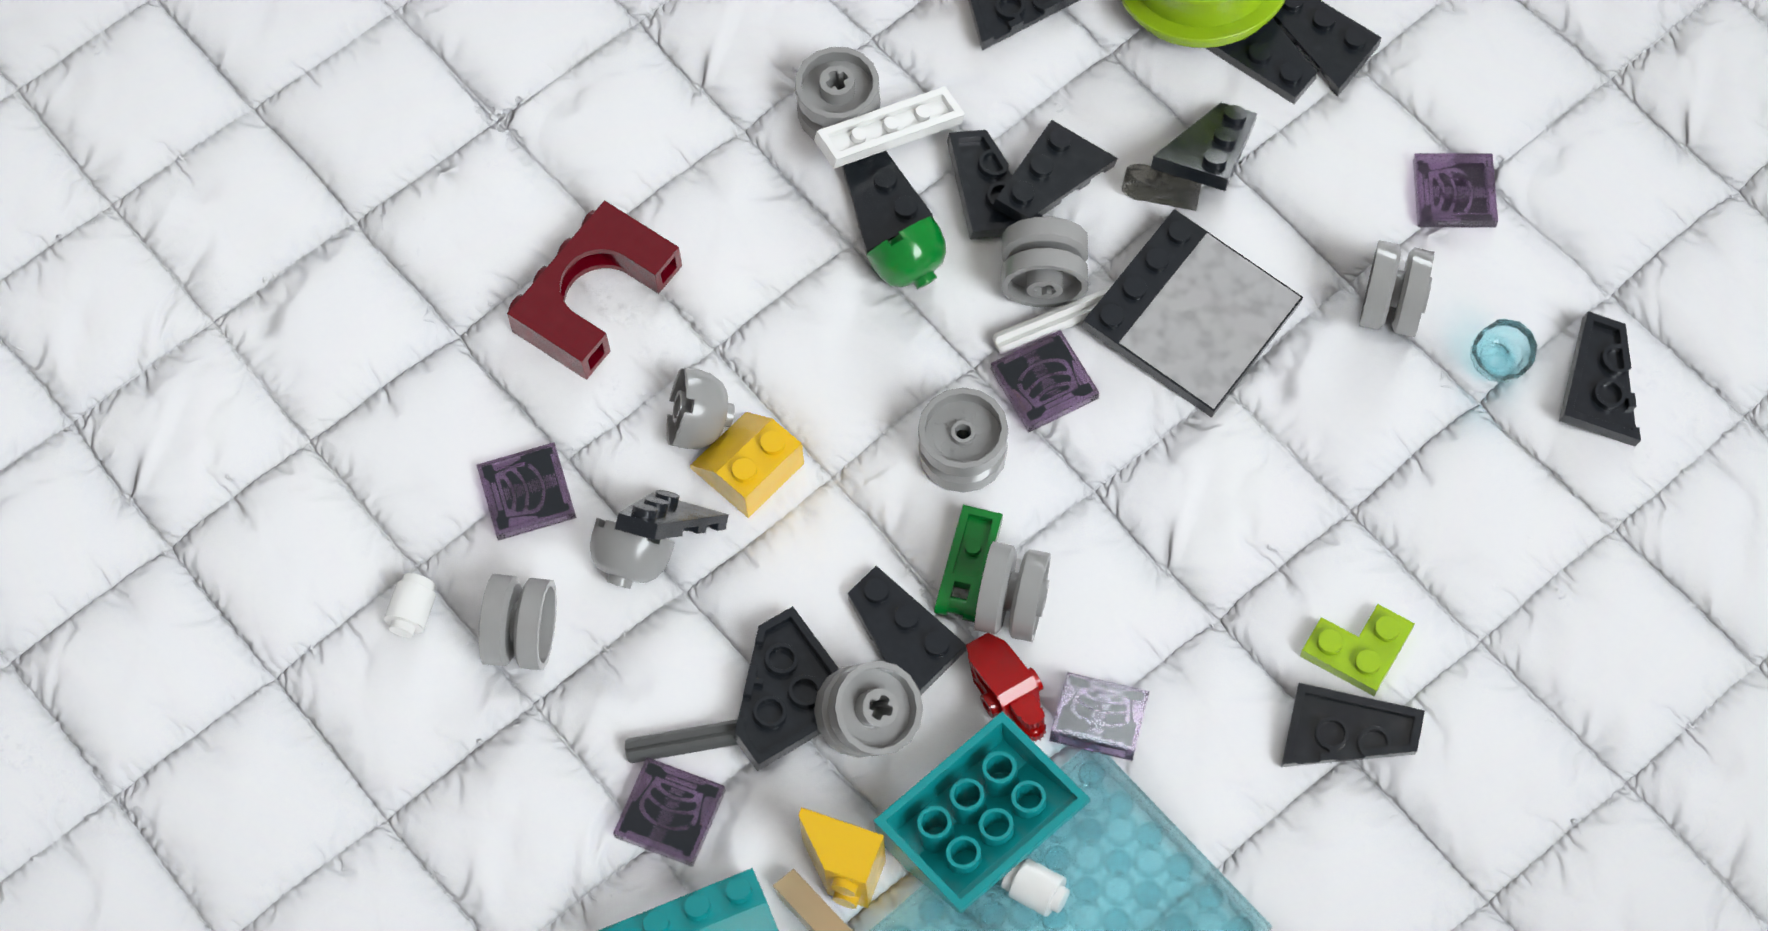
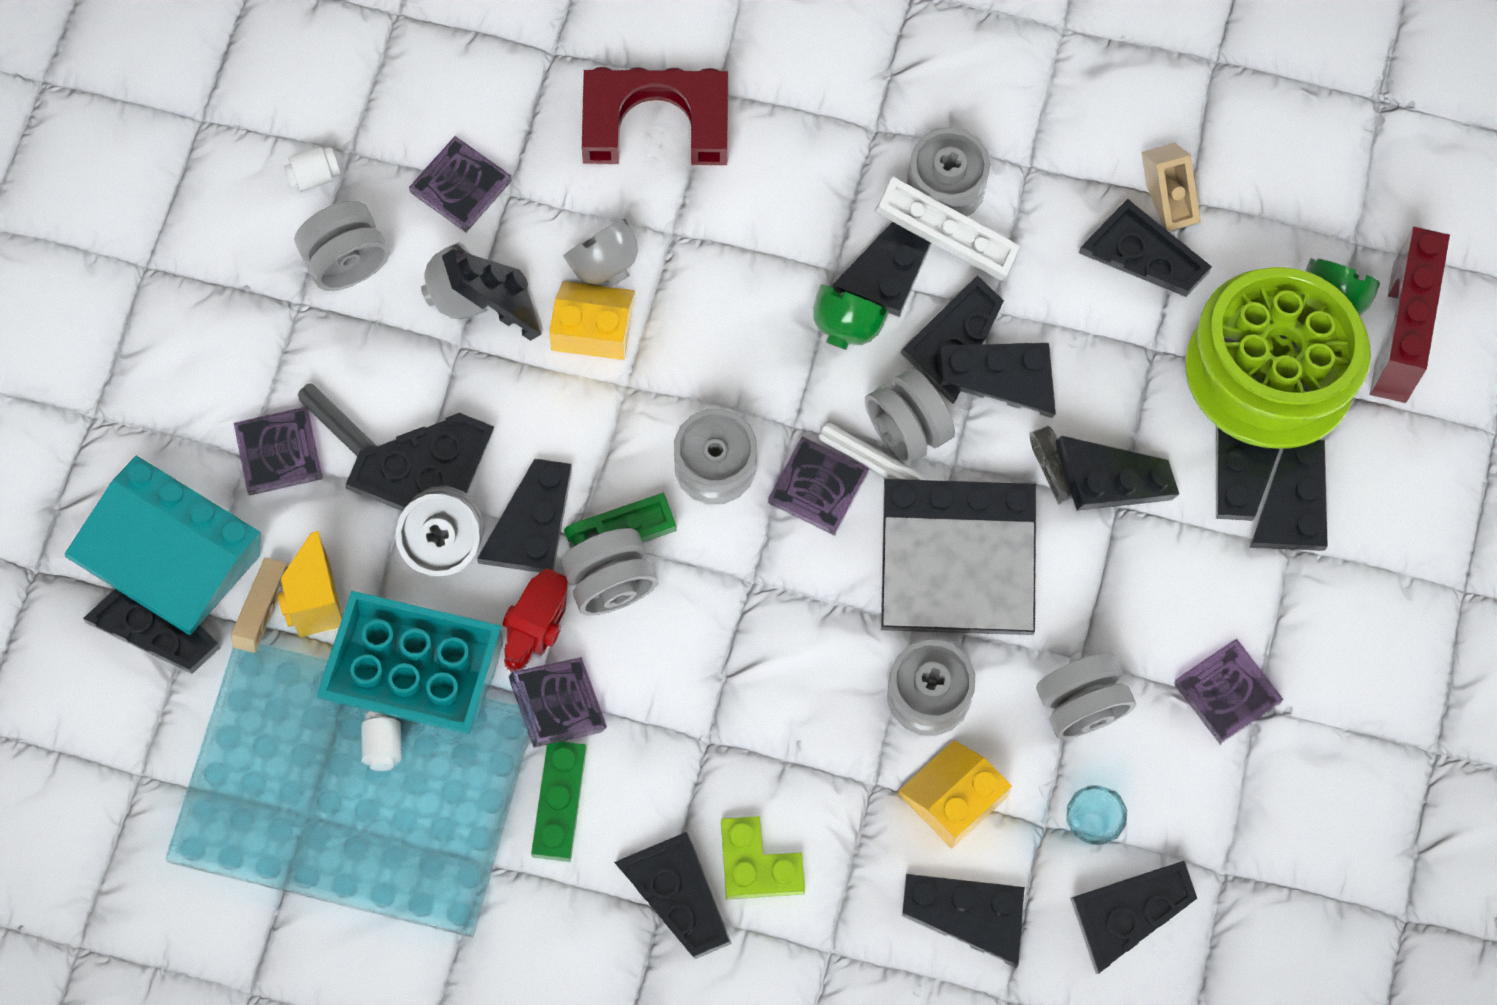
camera: 50 degrees right, 5 degrees up
(1191, 777) = (559, 801): none -> green plate
(1301, 405) = (935, 665): none -> light grey wheel
(1406, 447) = (955, 792): none -> yellow slope
(1519, 505) = (970, 911): none -> black wing

